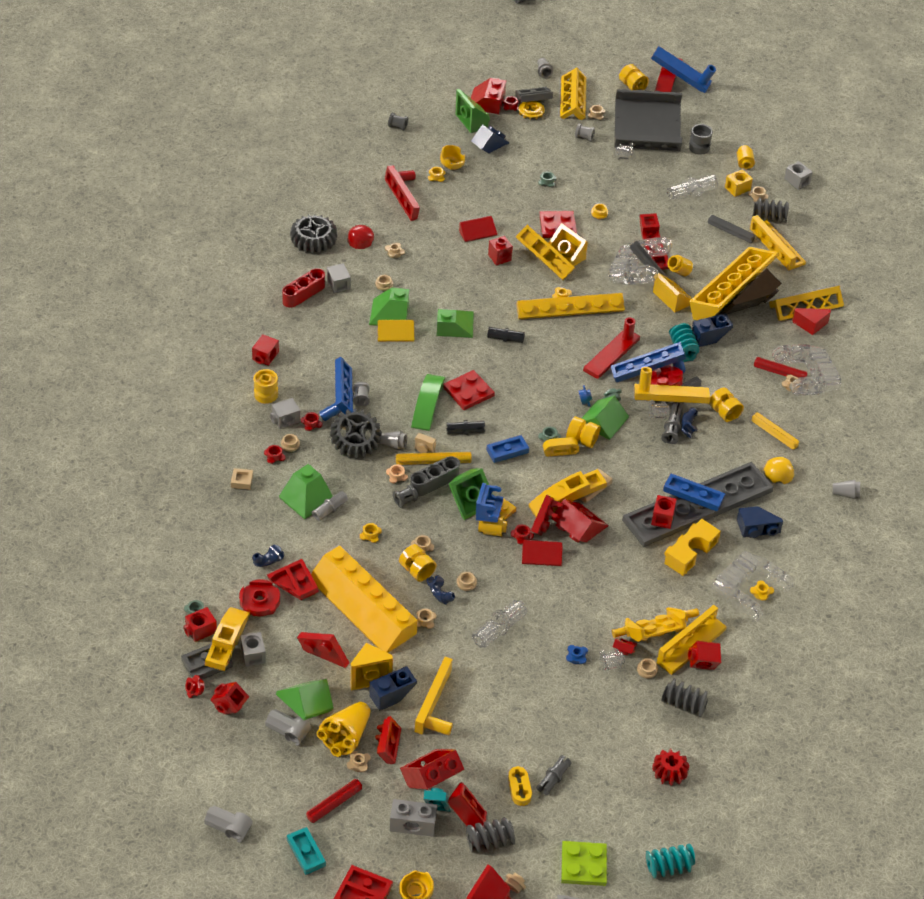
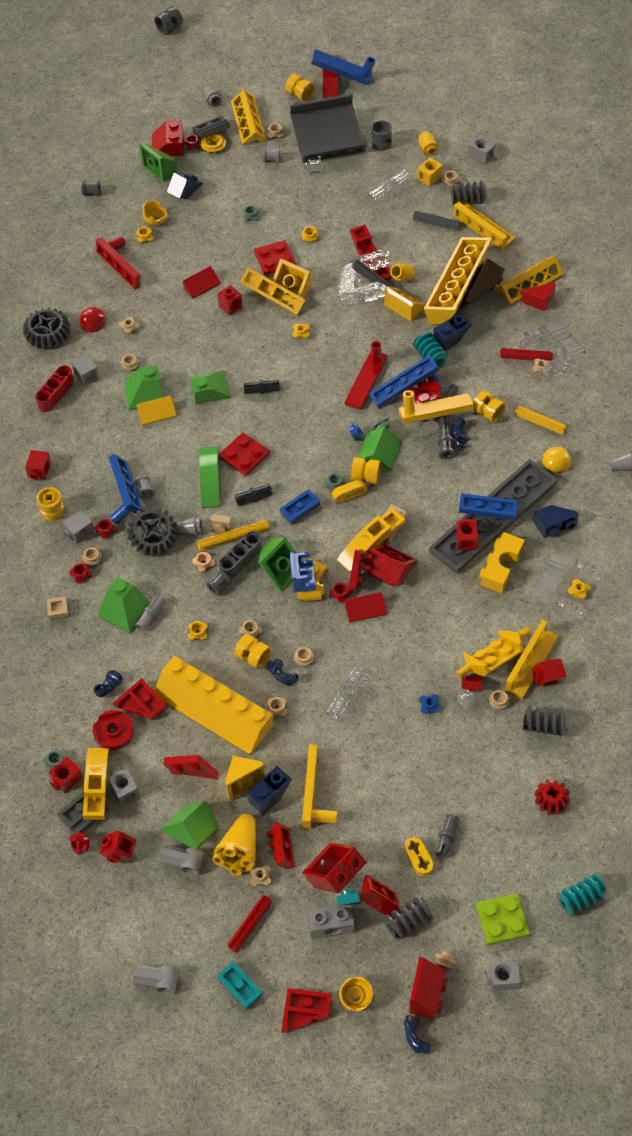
camera: 10 degrees left, 10 degrees up
(570, 306) = (312, 340): yellow plate -> none

